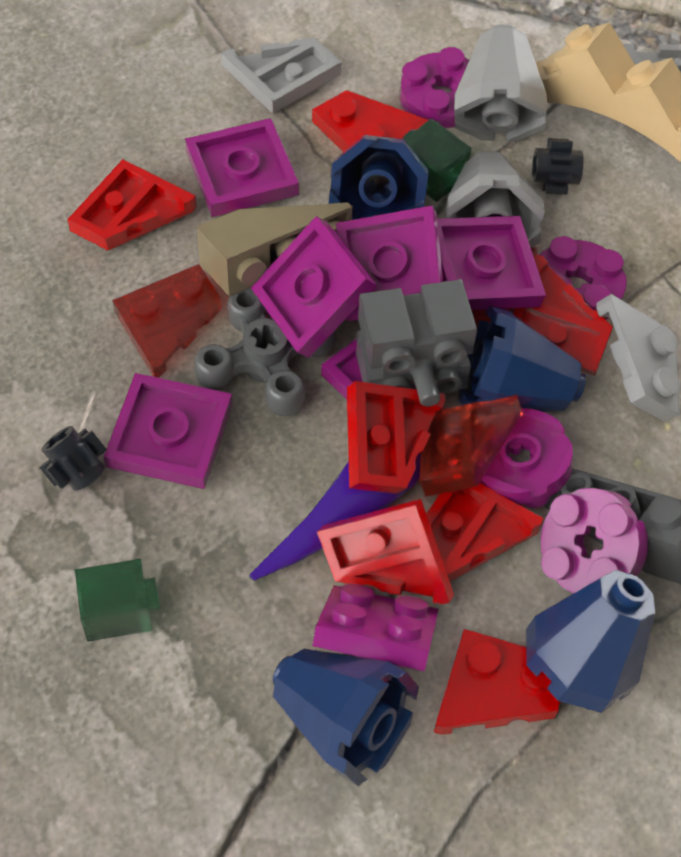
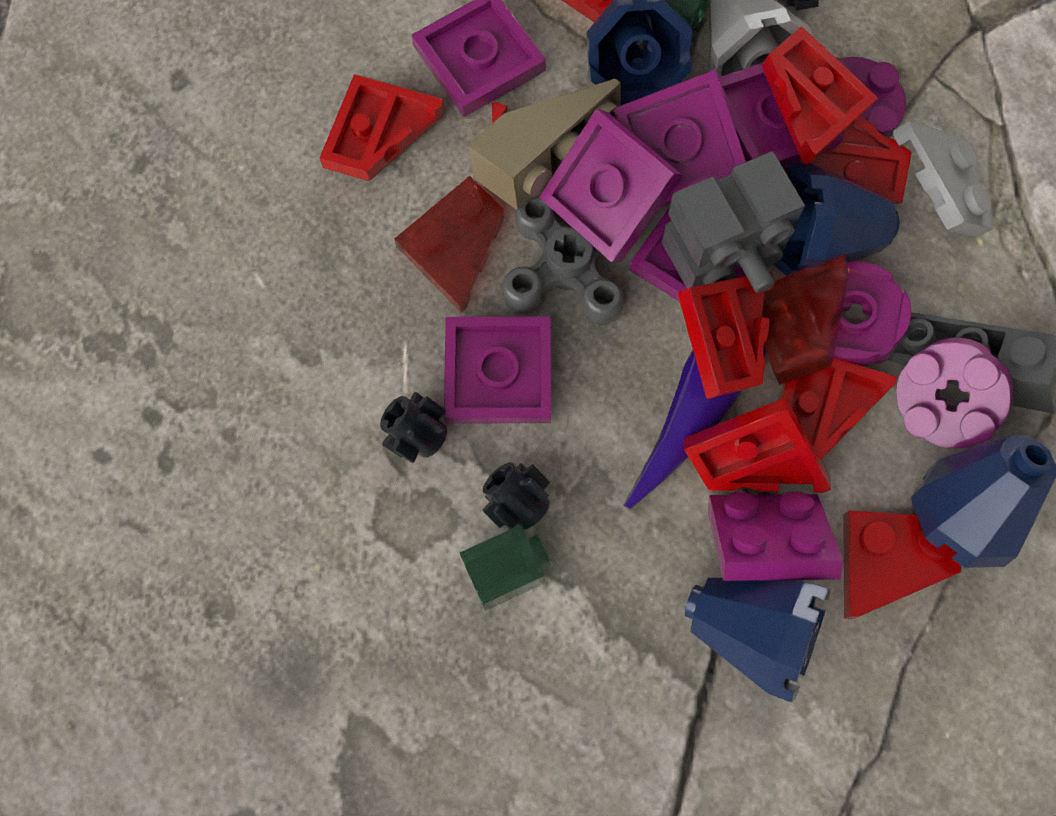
camera: 10 degrees left, 15 degrees up
(147, 537) = (516, 496): none -> black gear
(524, 249) = (814, 93): none -> red wing

